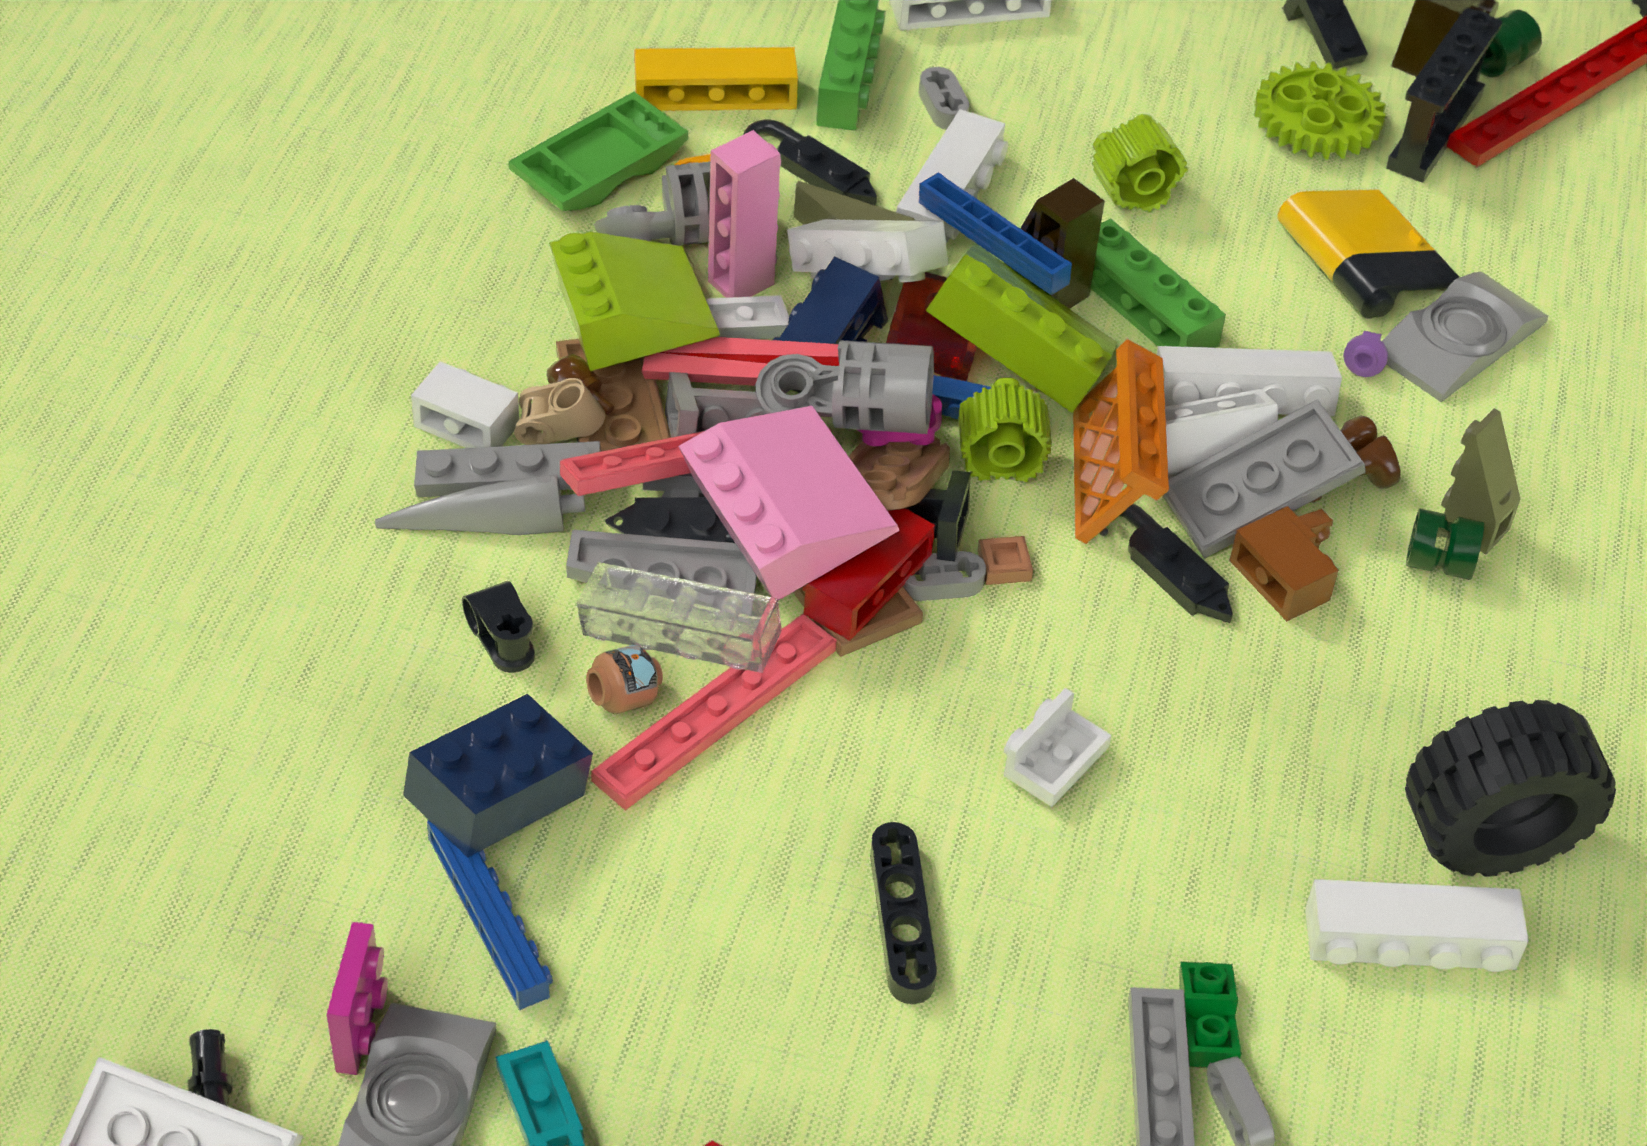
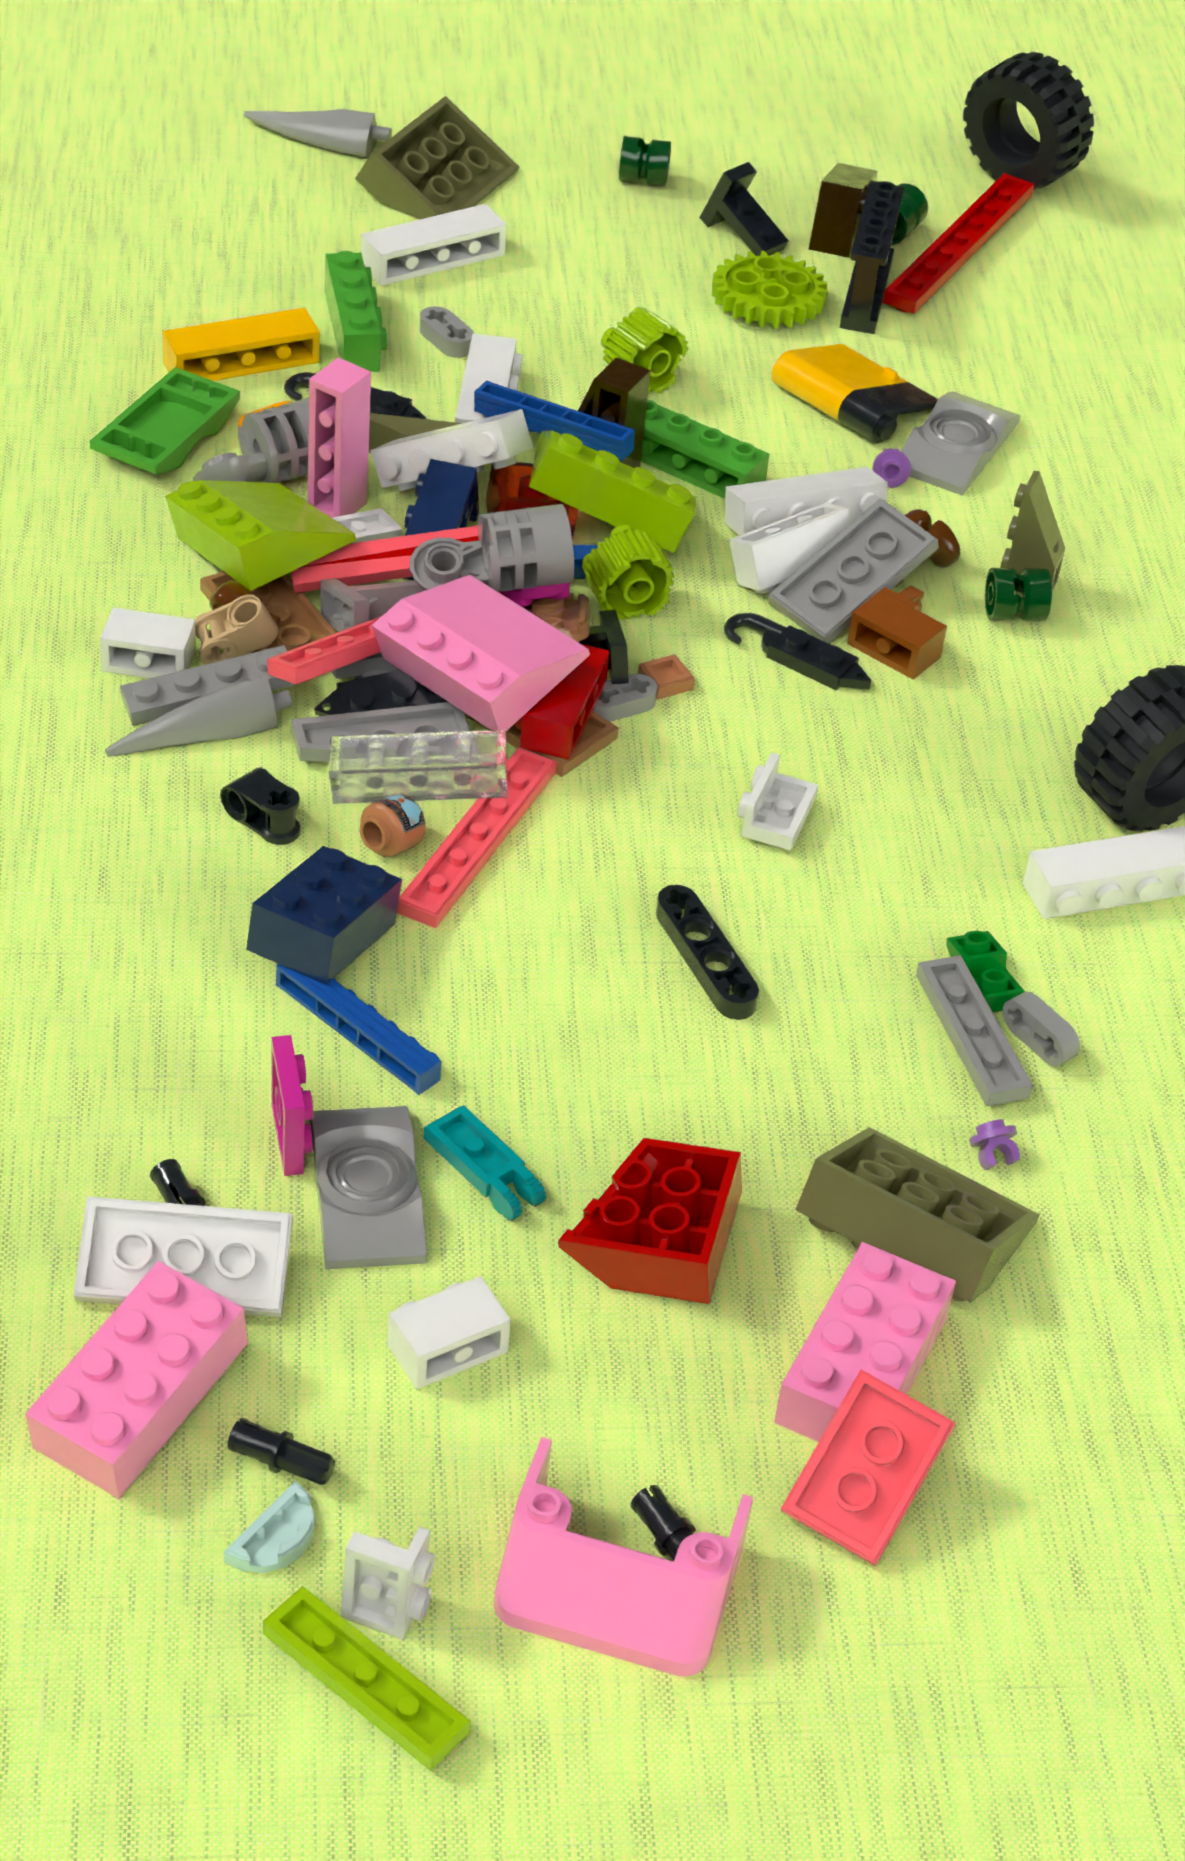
camera: 20 degrees left, 5 degrees down
(1137, 443) = (746, 543): orange fence -> none

